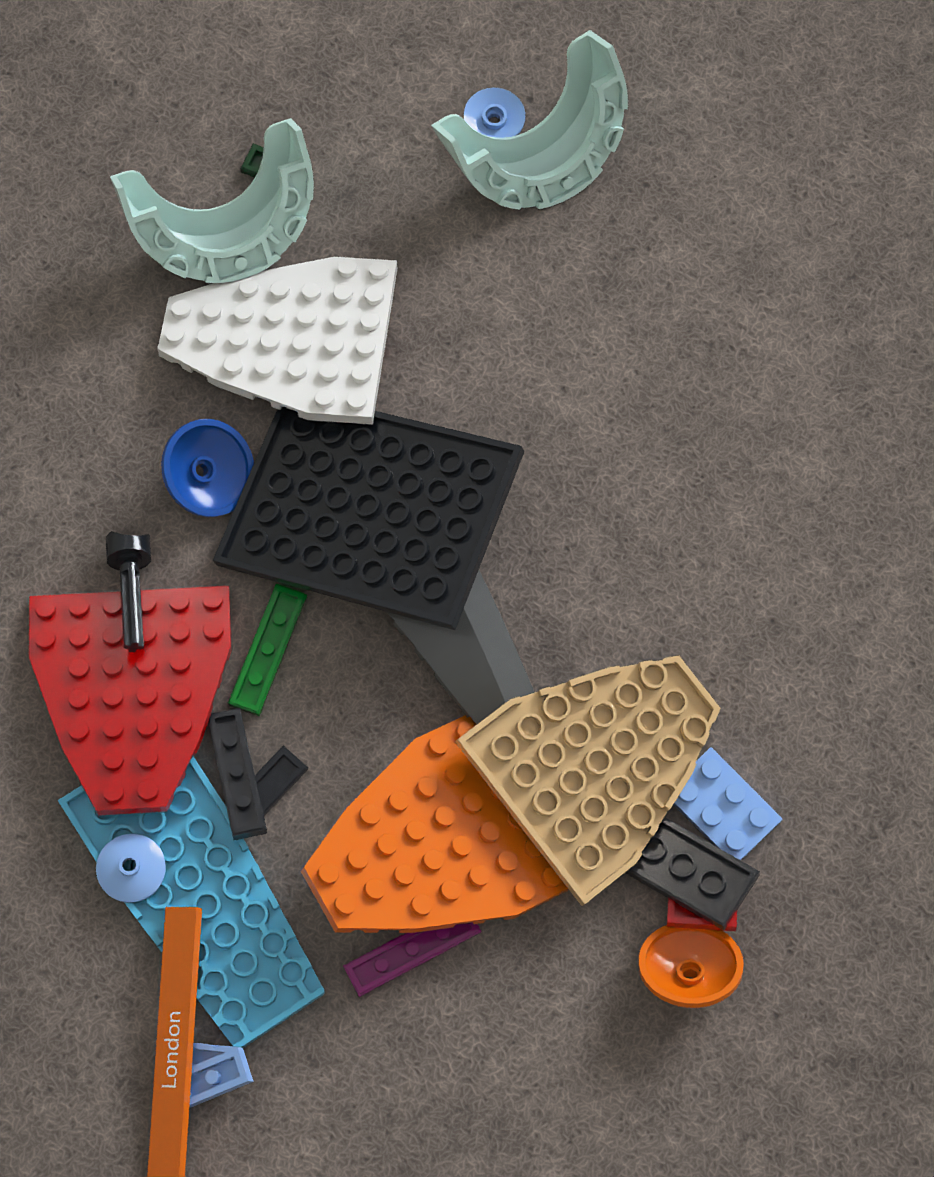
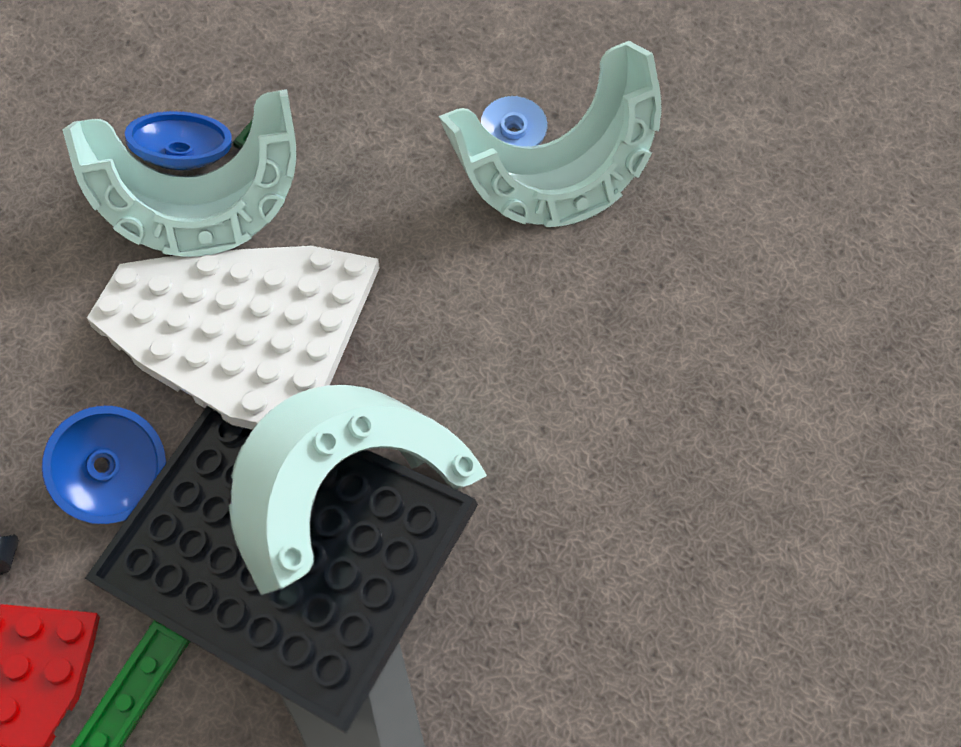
camera: 10 degrees right, 5 degrees down
(195, 174) = (178, 139): none -> blue dish
(373, 429) = (295, 451): none -> light aqua windscreen

